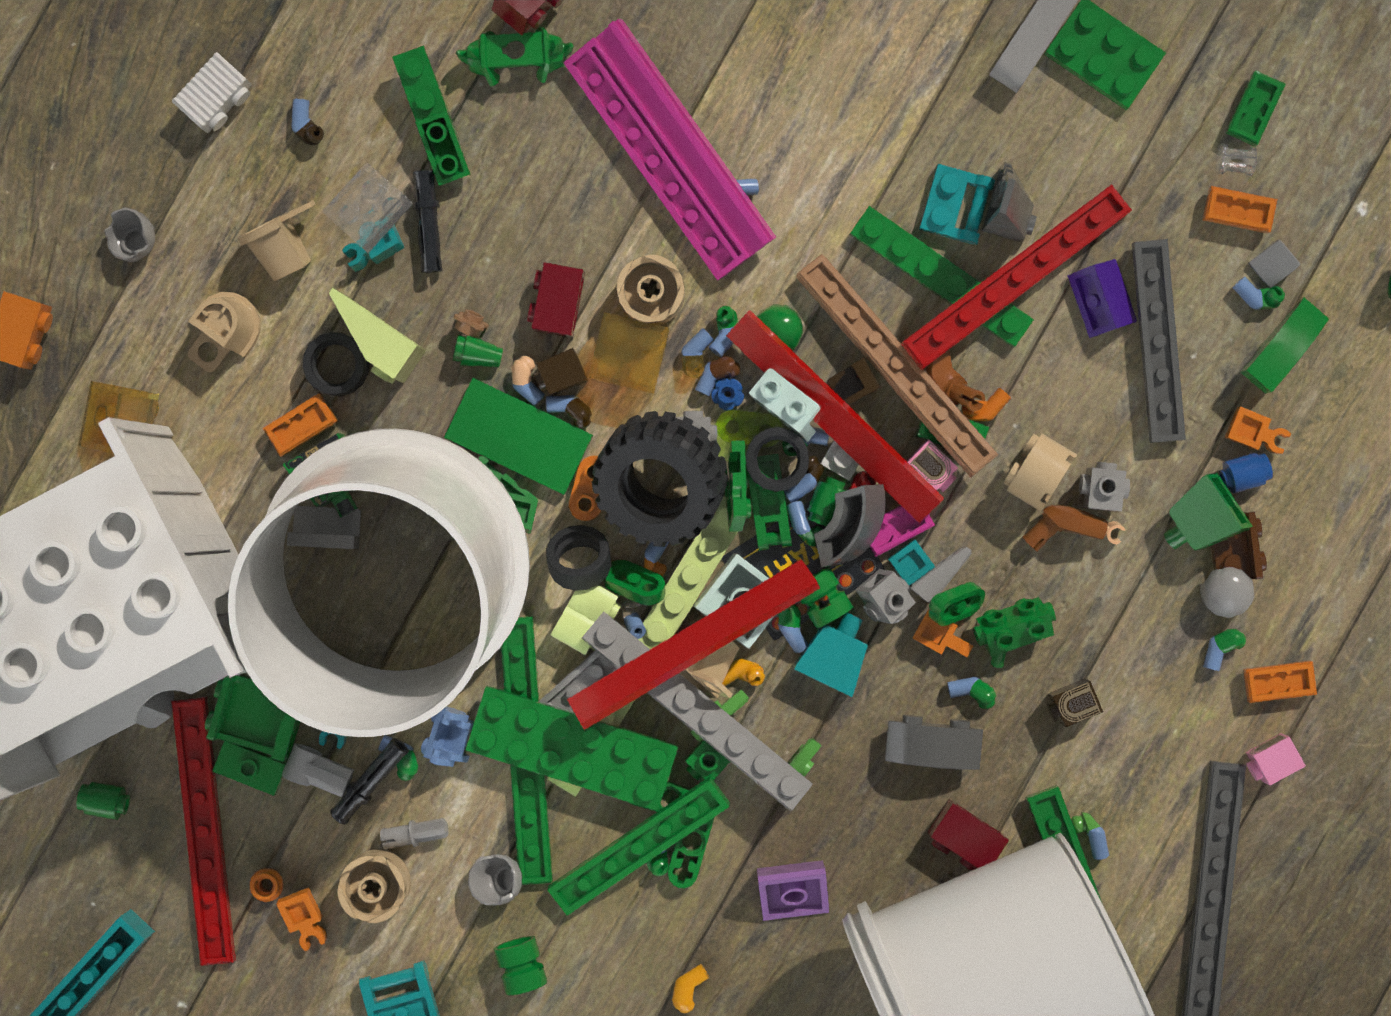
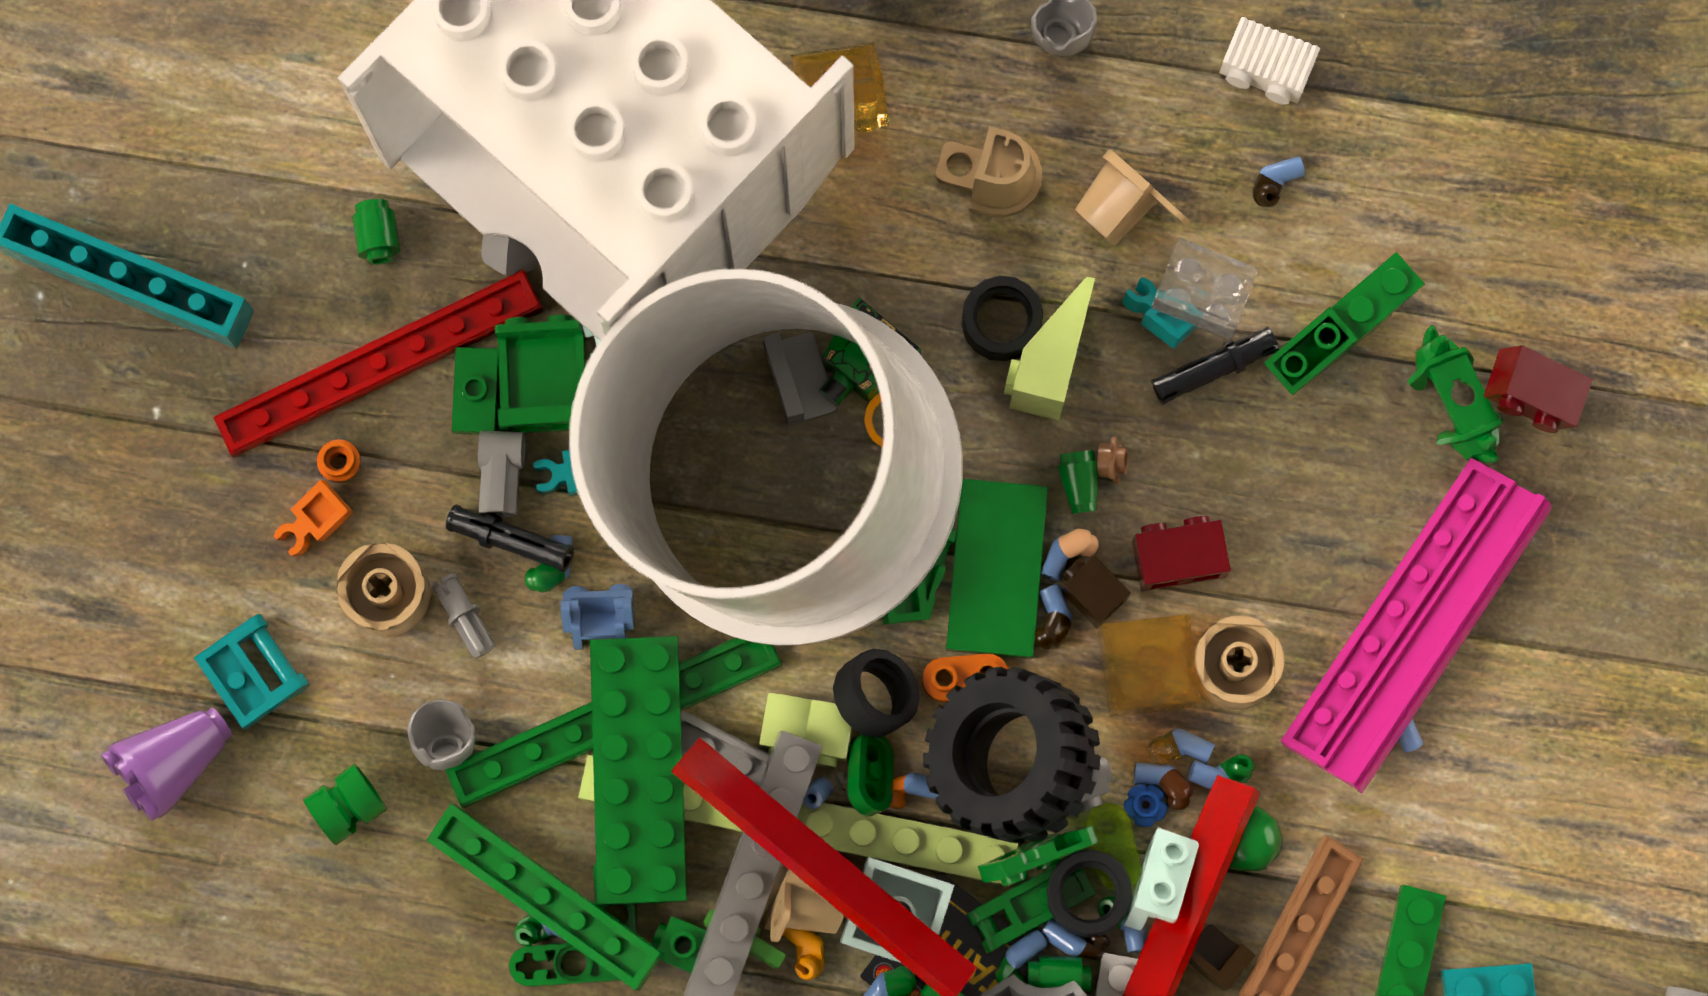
camera: 70 degrees right, 10 degrees down
(300, 425) = (913, 303): orange plate -> none

